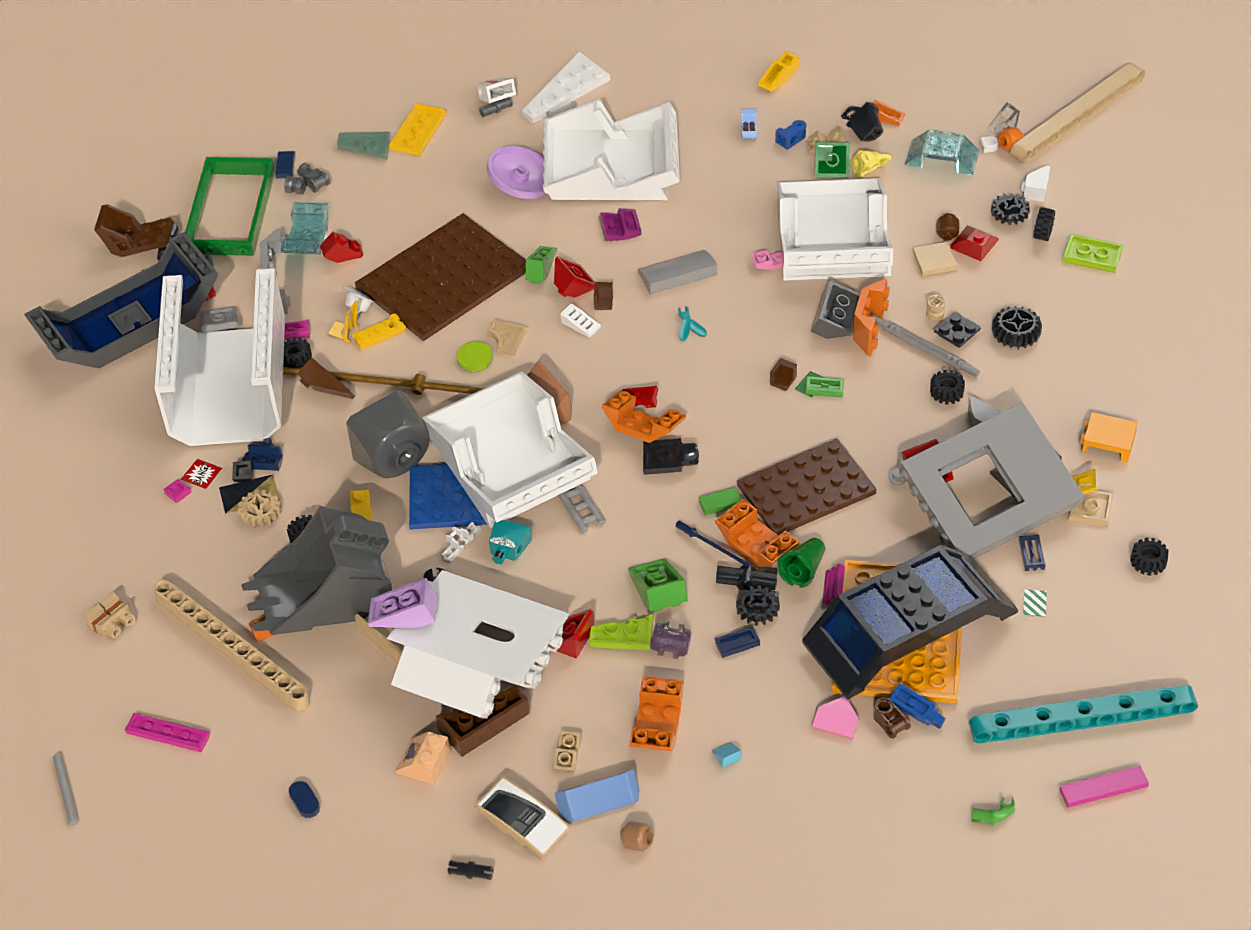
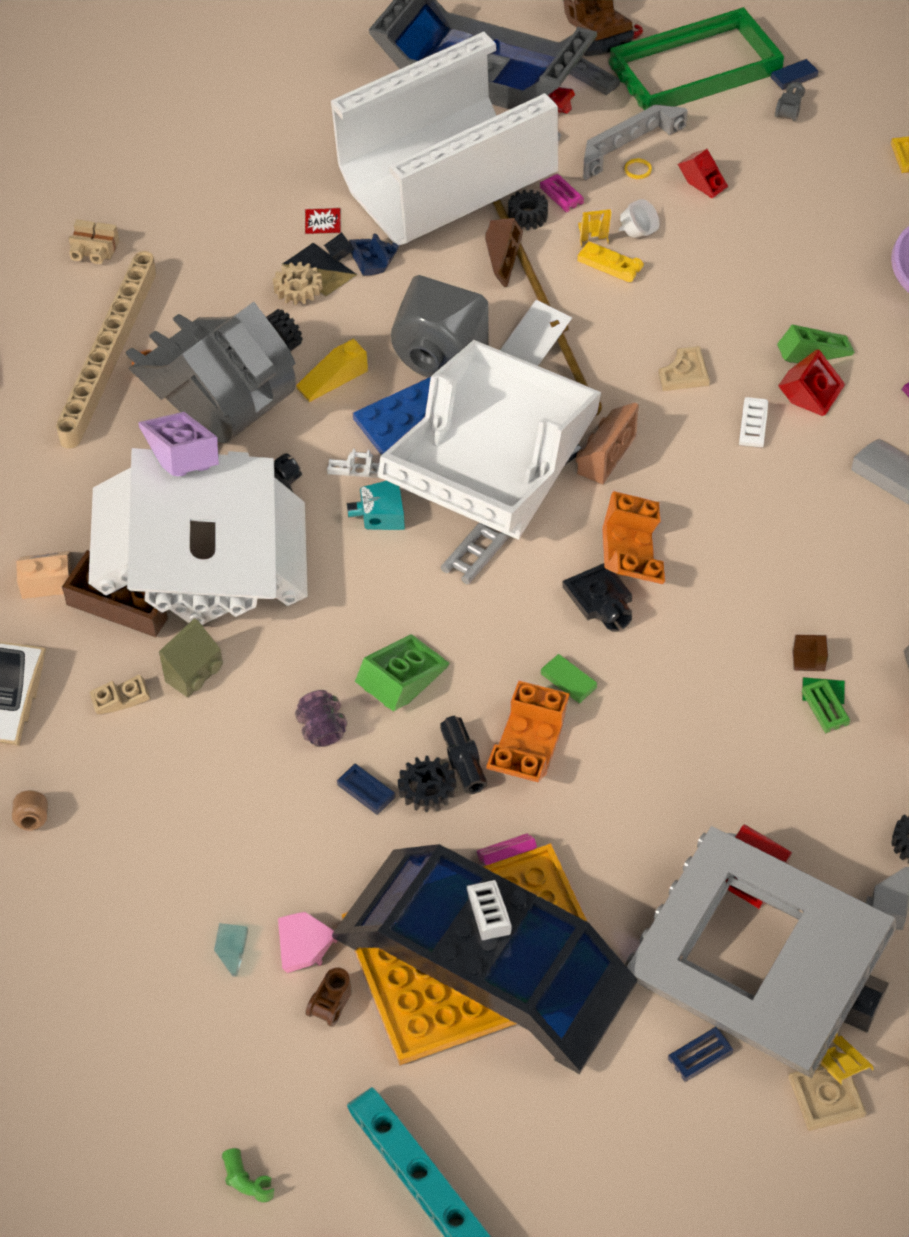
camera: 60 degrees right, 5 degrees up
(177, 490) = (286, 213): dark pink tile -> none
(295, 185) = (767, 94): flat silver wheel -> none
(301, 288) = (638, 160): none -> yellow piece
(308, 229) = (718, 134): clear light blue slope -> none
(365, 143) = (878, 119): sand green wing -> none
(420, 396) = (534, 333): none -> white sticker
(443, 276) = (733, 274): reddish brown plate -> none
(474, 356) = (633, 356): lime tile -> none
(572, 694) = (190, 658): none -> olive slope
(576, 633) = (283, 628): red slope -> none
(598, 796) = (70, 752): medium blue piece -> none
(603, 295) = (807, 425): reddish brown panel -> none
(625, 635) = (309, 670): lime wing -> none
(644, 395) = (673, 529): red hinge -> none
(658, 714) = (202, 760): orange slope -> none
(689, 324) = (827, 526): teal piece -> none
(693, 533) = (501, 671): dark blue piece -> none
(727, 754) = (193, 849): medium azure slope -> none
(801, 563) = (519, 799): green cone -> none
(806, 487) = (649, 757): reddish brown plate -> none
(817, 762) = (231, 945): none -> clear light blue slope
(916, 706) = (361, 1018): blue hinge -> none
(917, 590) = (493, 929): none -> white slope
(1034, 602) = (620, 1092): sticker -> none
(1149, 565) = (786, 1186): black tyre -> none

